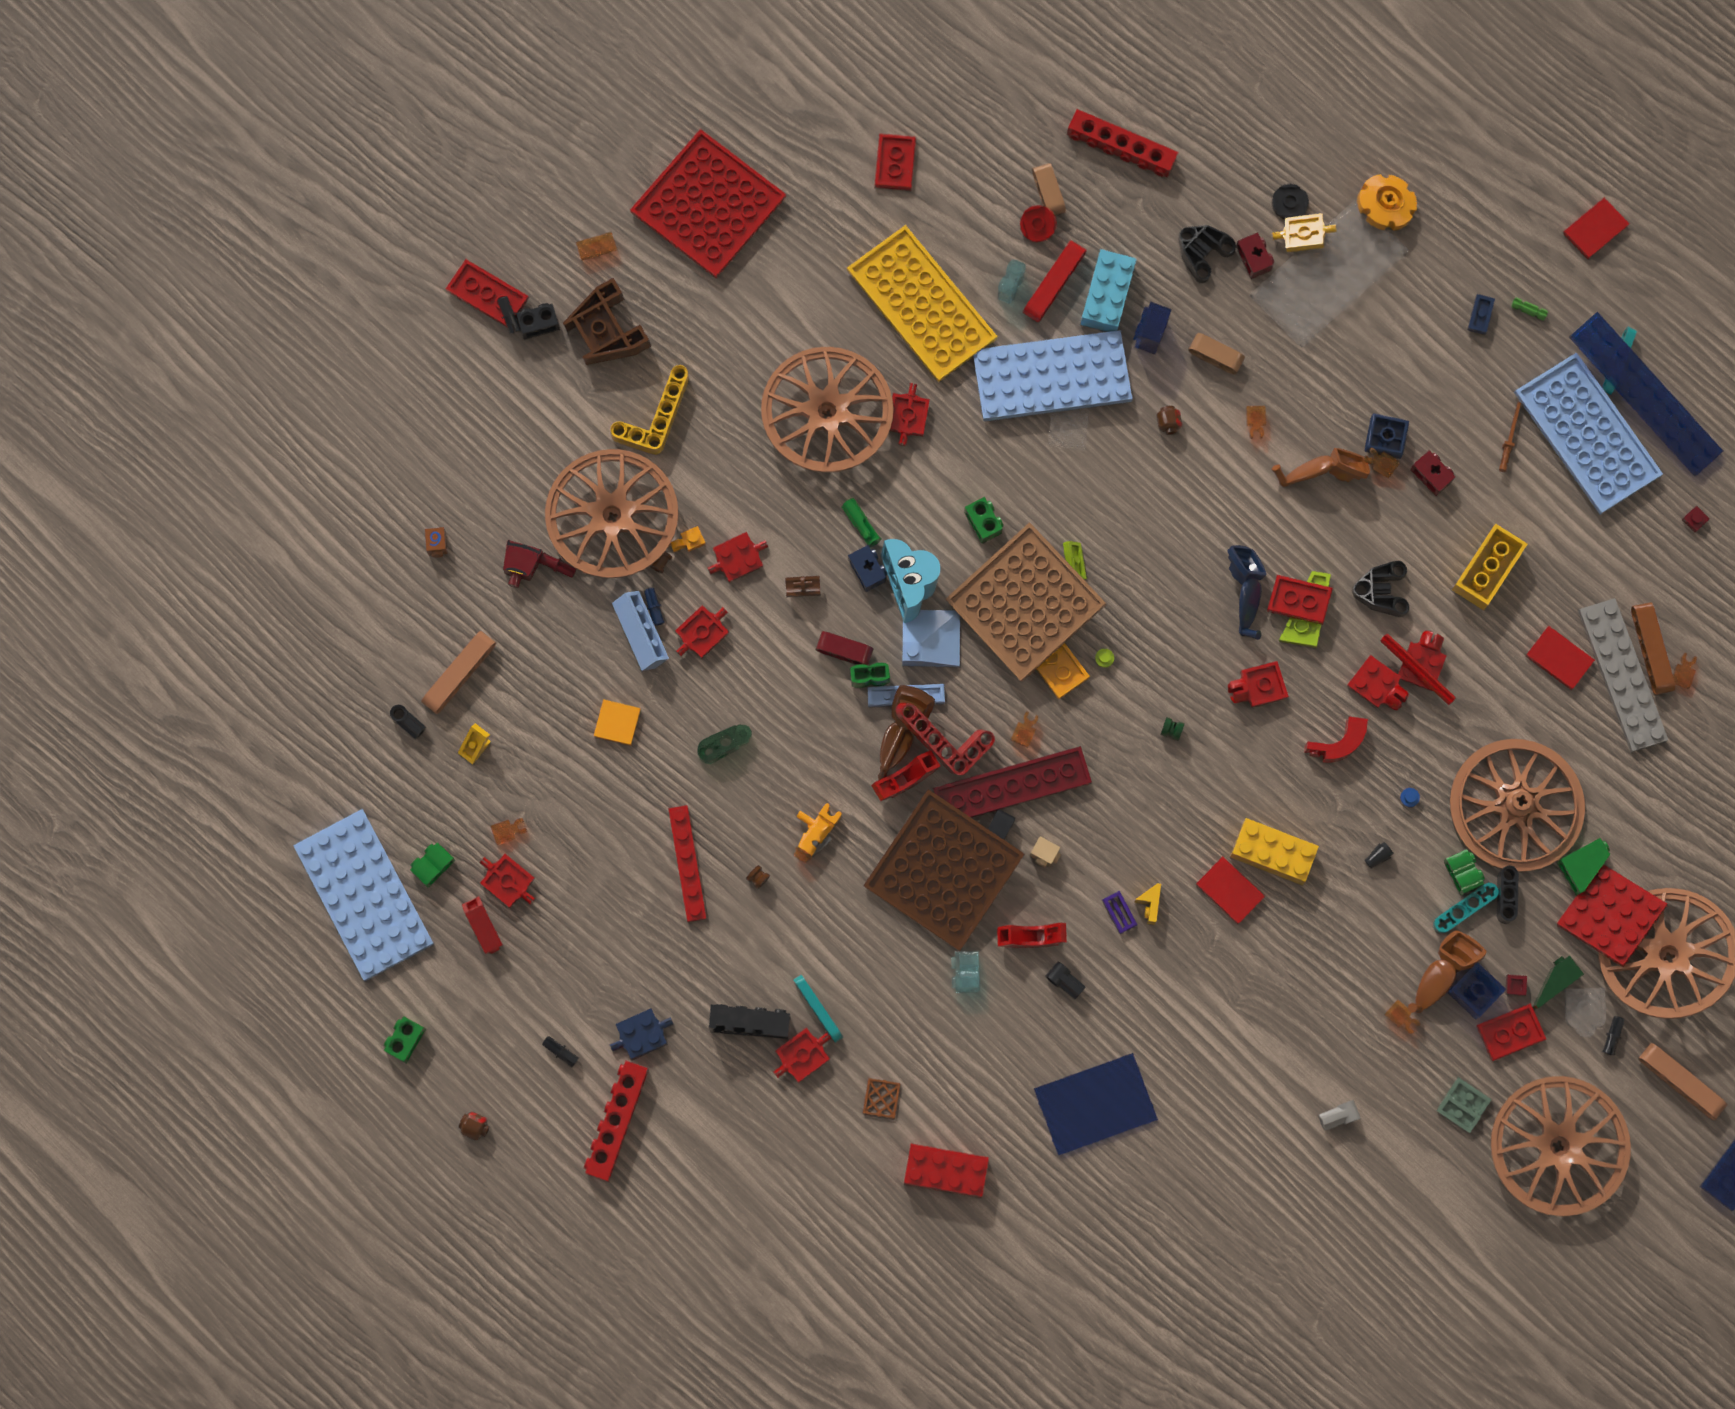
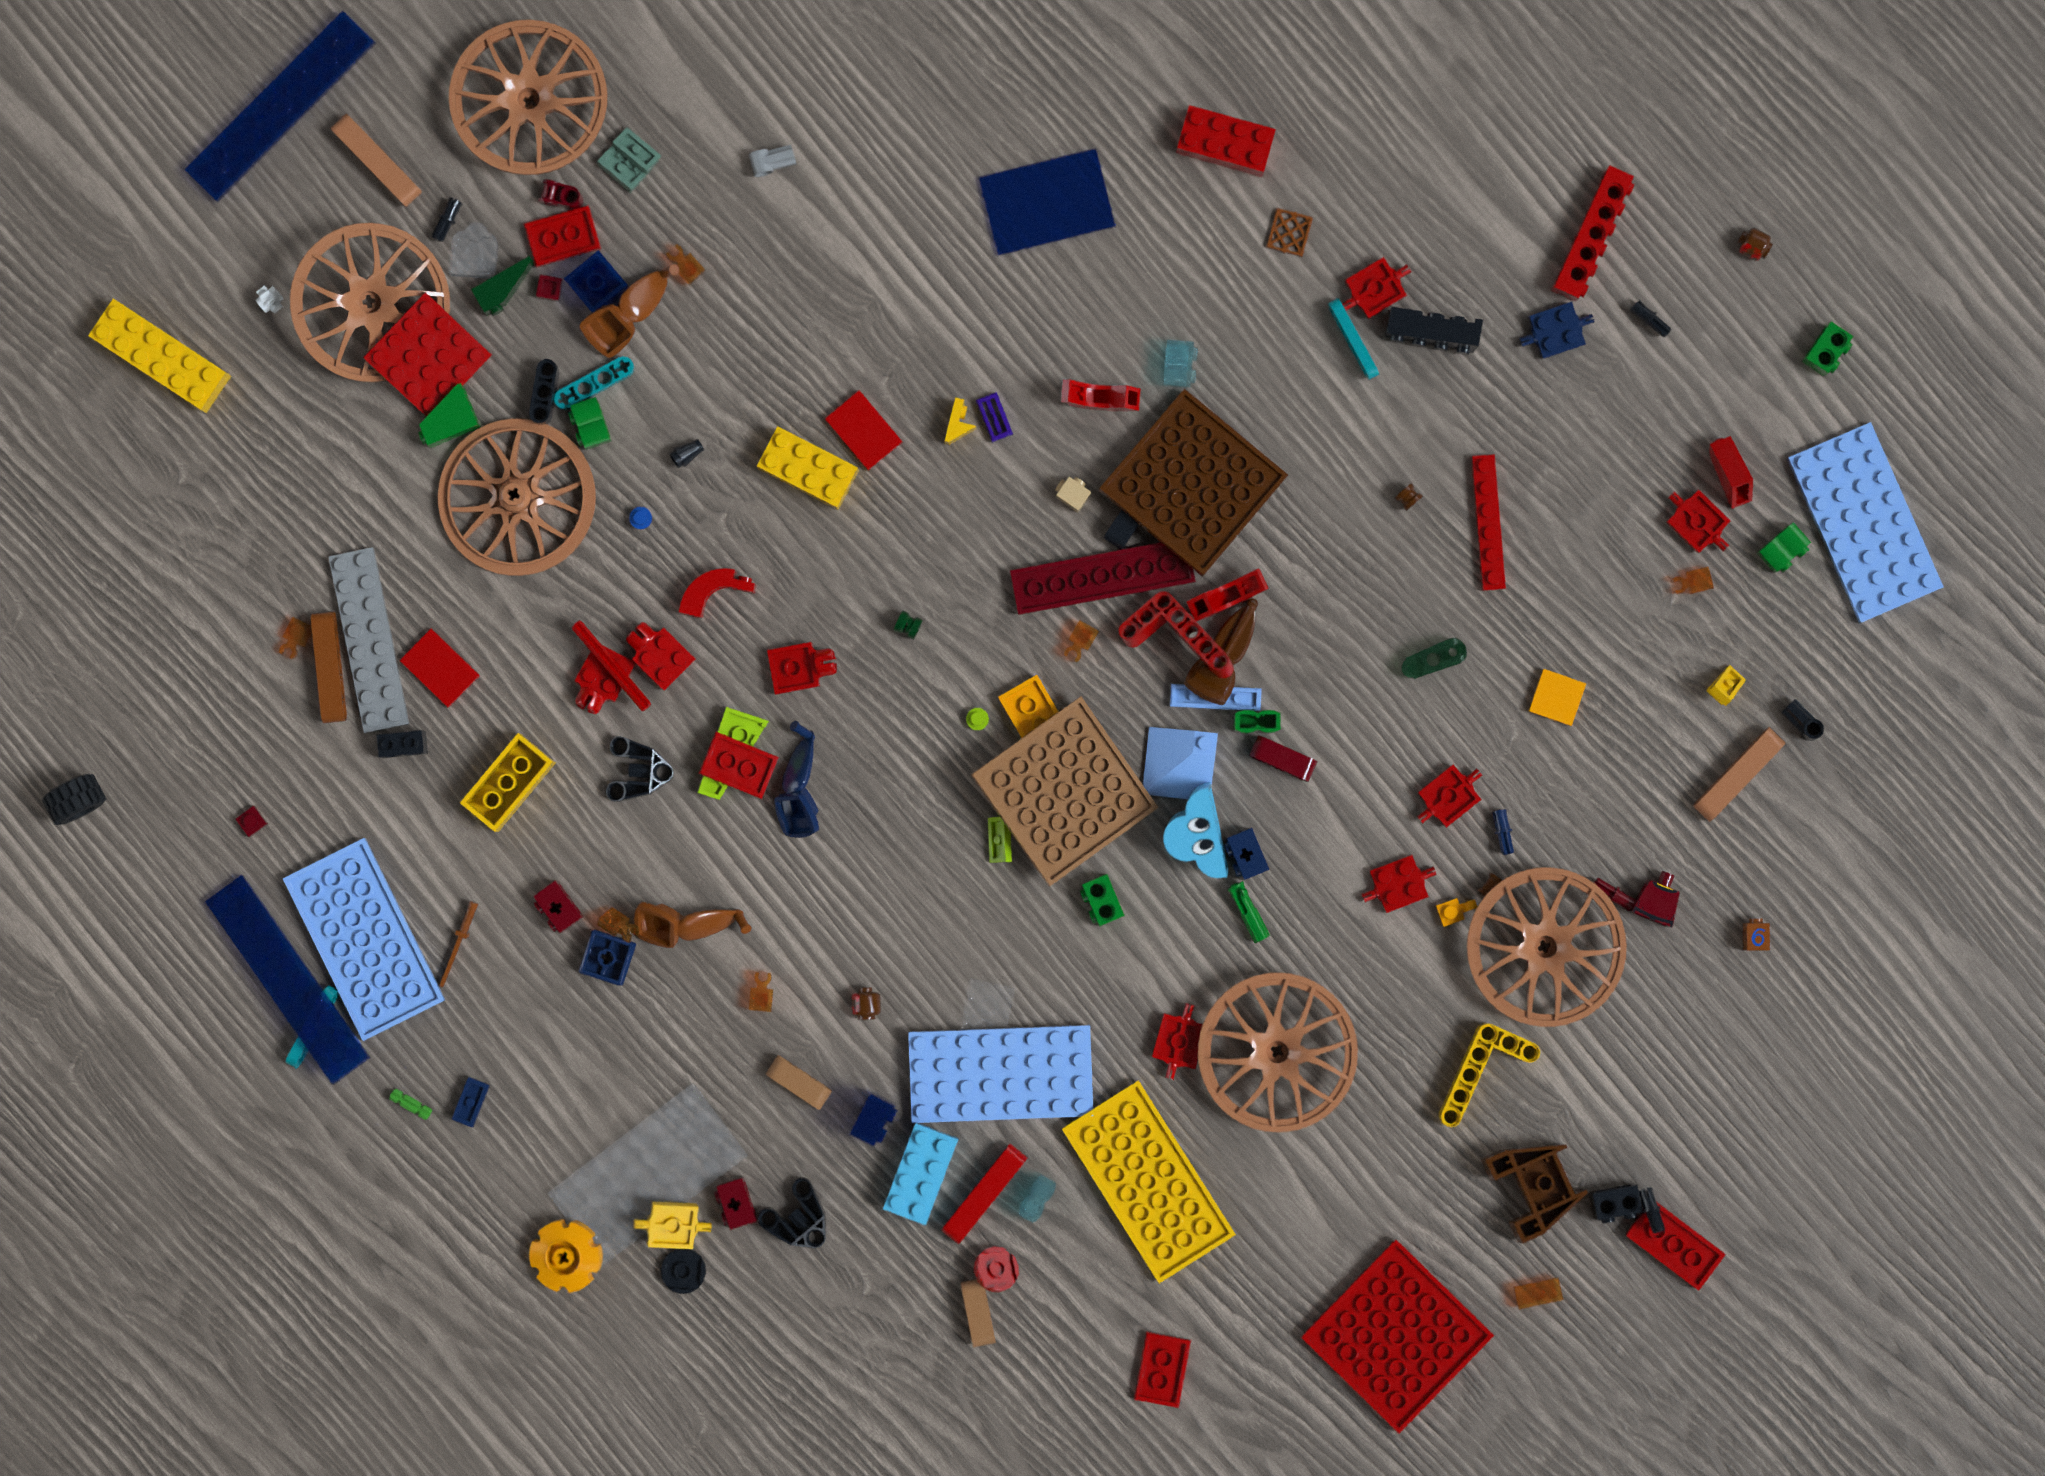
camera: 175 degrees left, 10 degrees up
(640, 630) = (1522, 802): light blue brick -> none
(803, 586) = (1325, 838): reddish brown hips -> none
(817, 835) = (1335, 540): light orange piece -> none
(1061, 977) = (1070, 347): black piece -> none
(1116, 135) = (928, 1400): red brick -> none
(1522, 1066) = (556, 195): none -> dark red piece
(1582, 590) = (402, 744): none -> black brick
(1596, 228) = (313, 1200): red tile -> none

